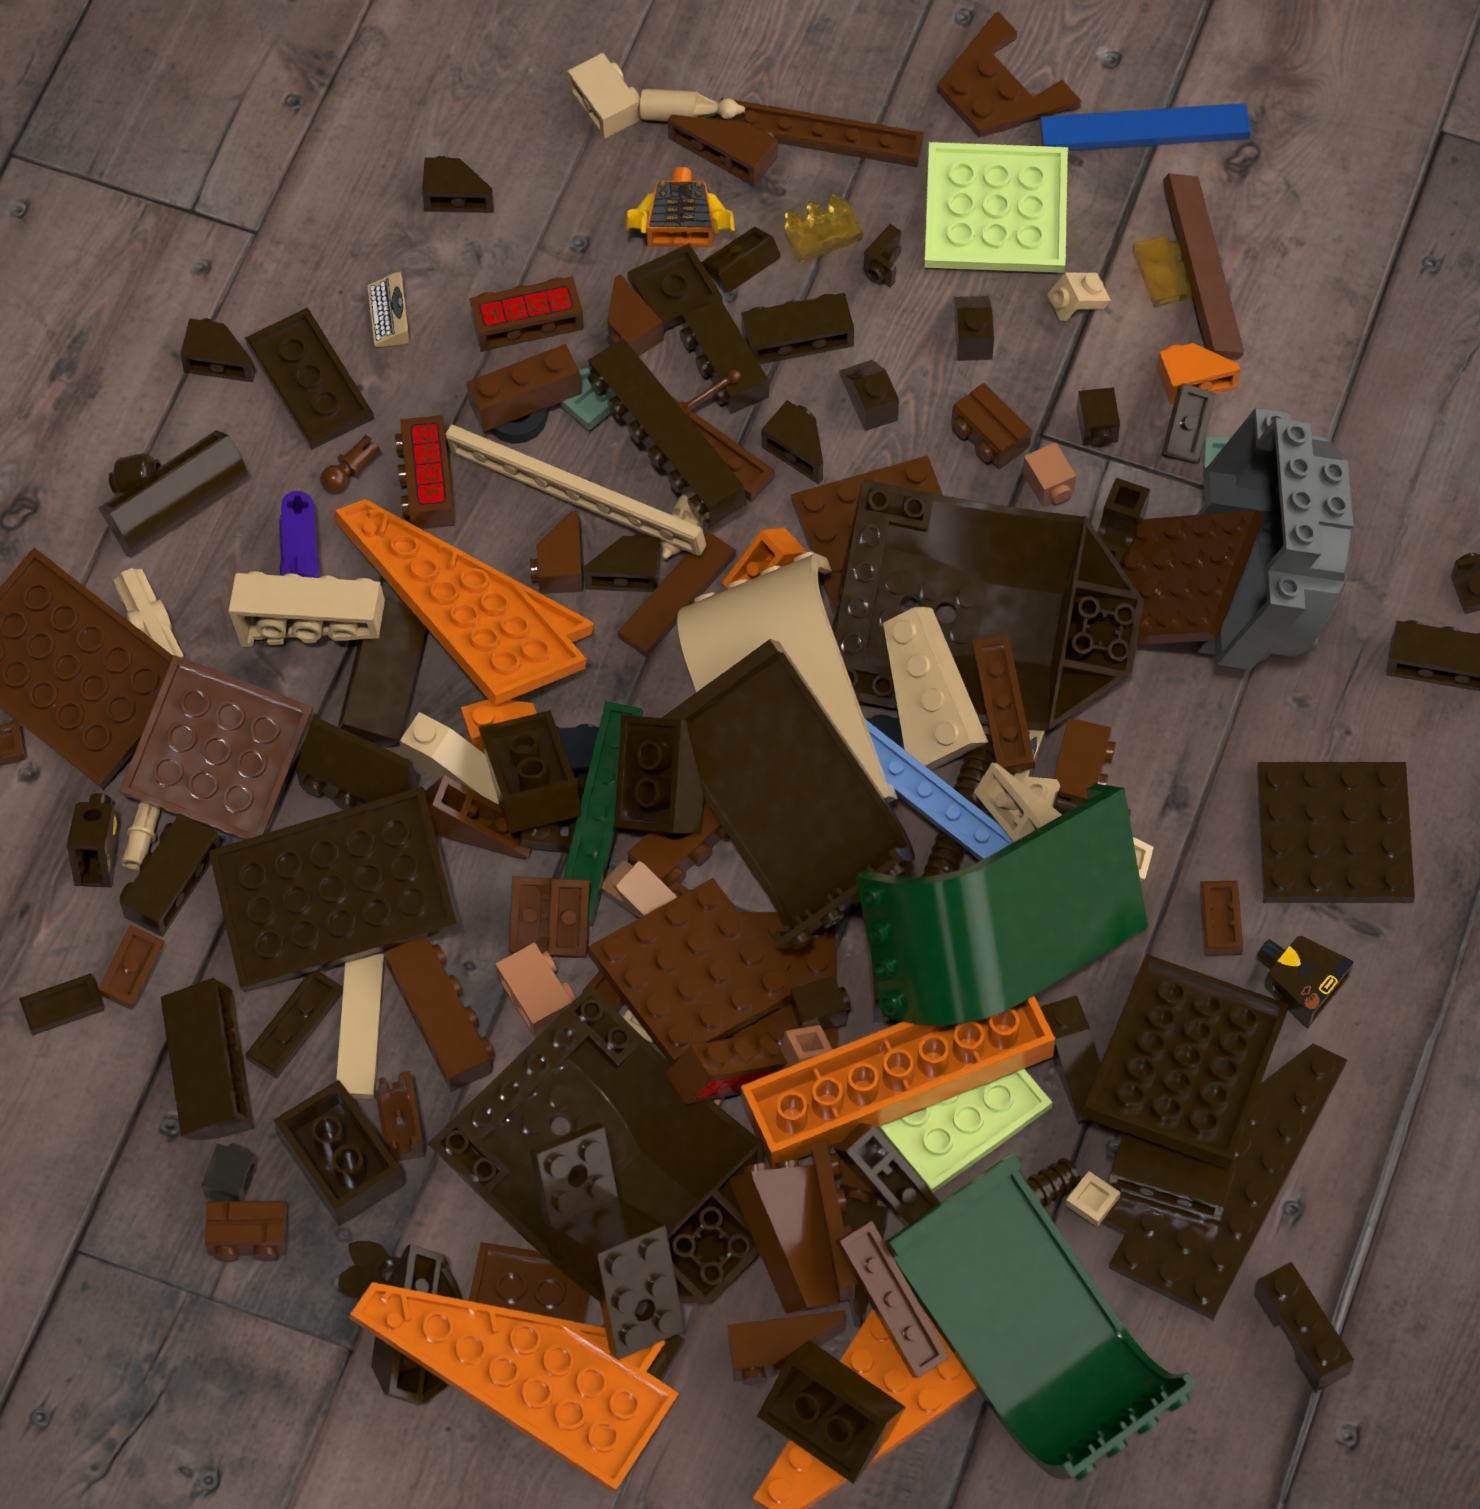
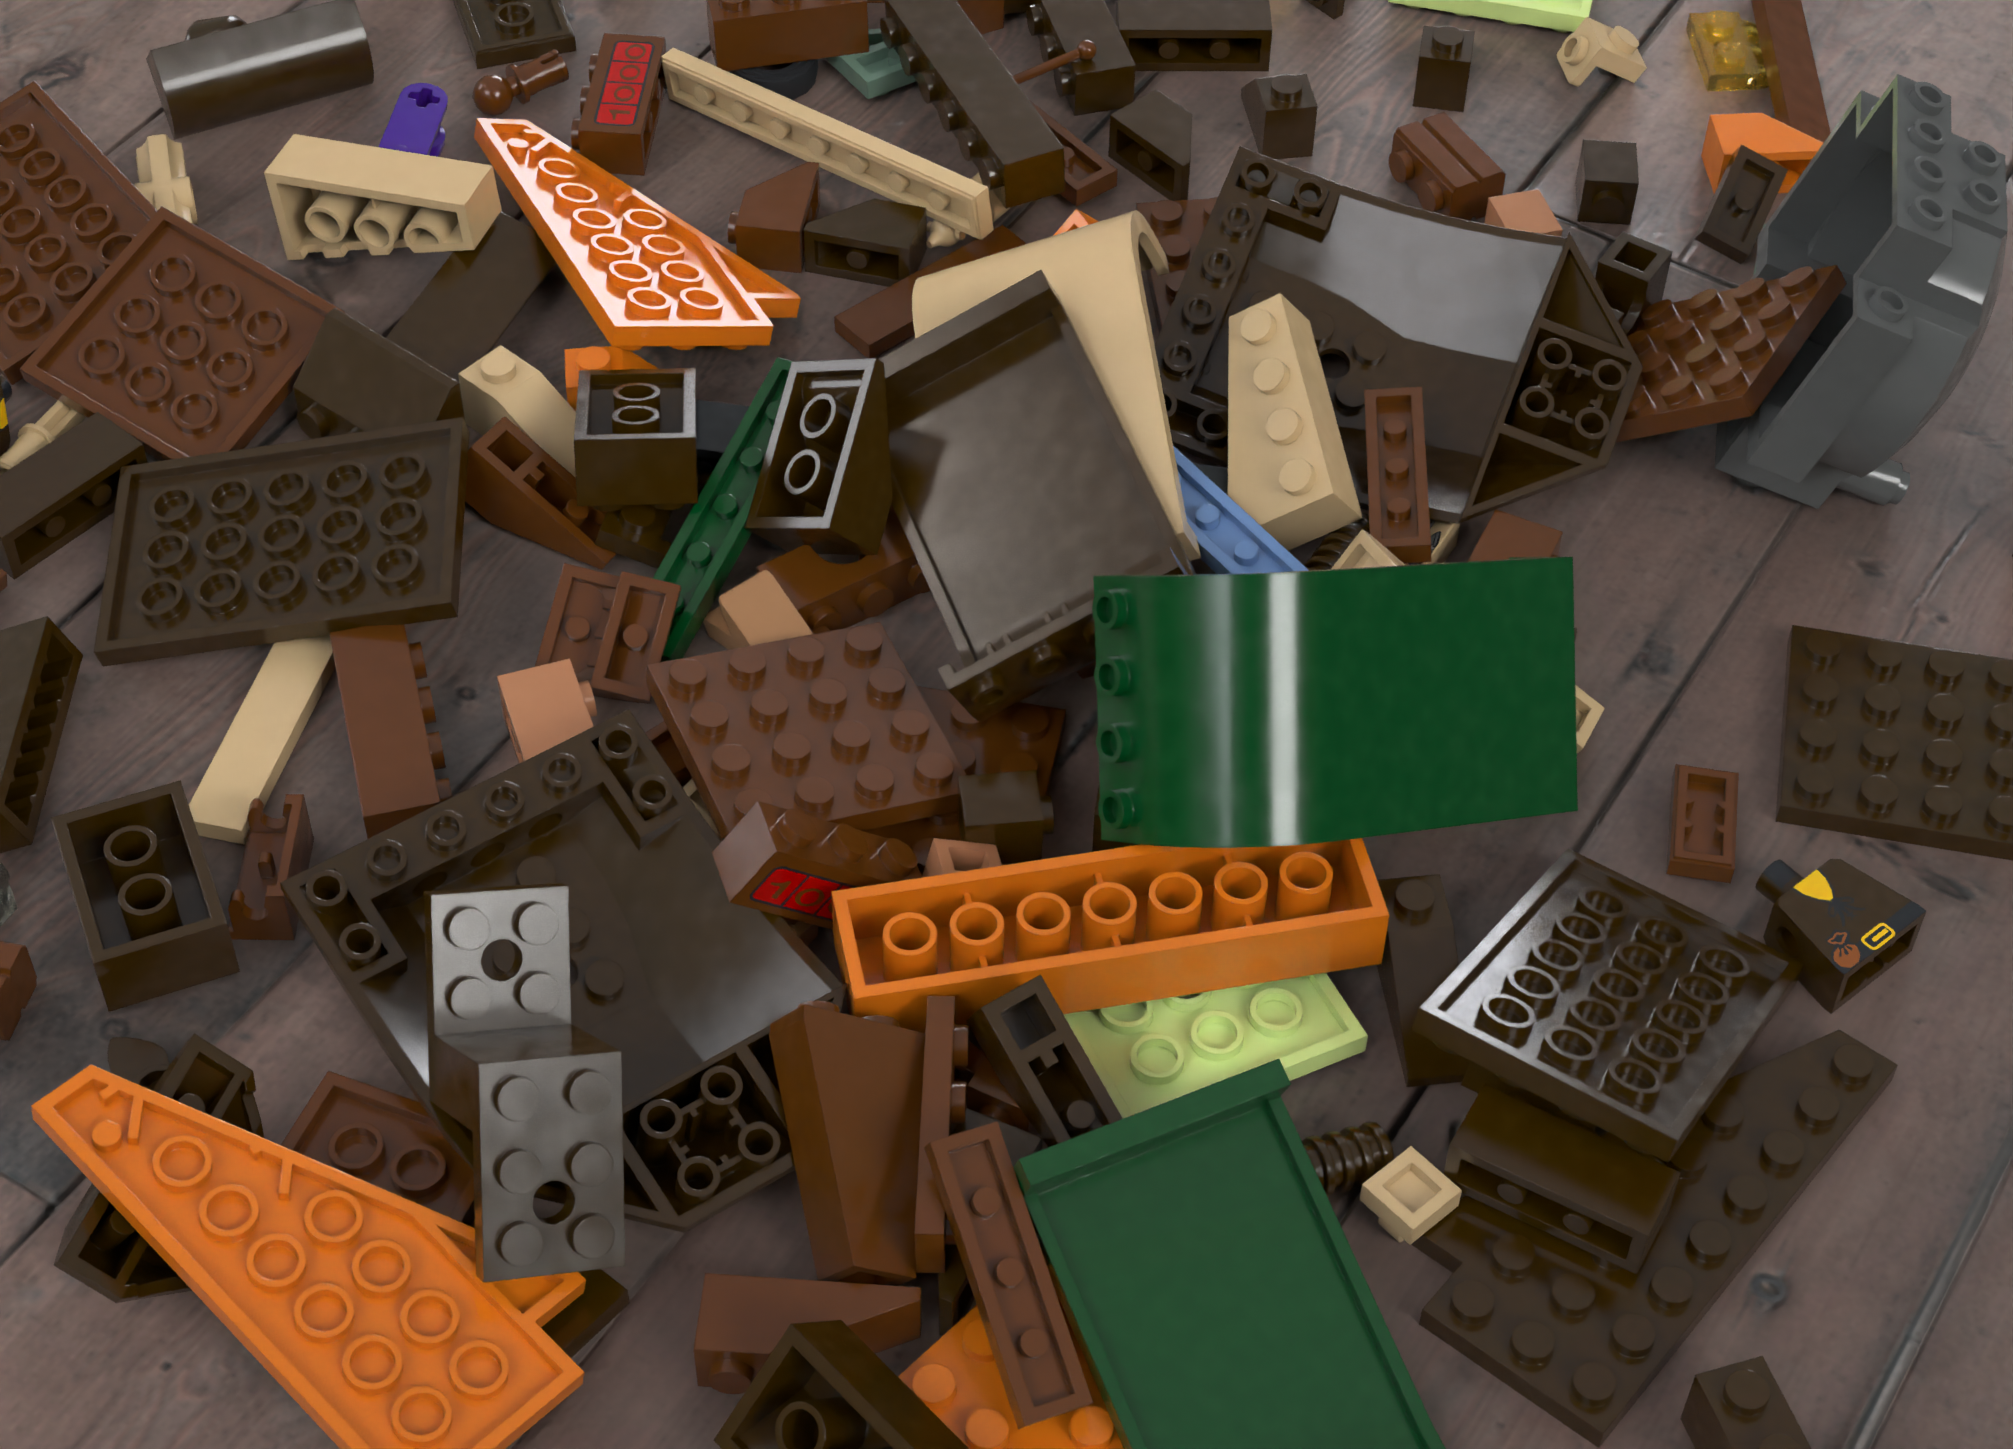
camera: 10 degrees right, 15 degrees down
(294, 1023) = (160, 719): dark brown tile -> none

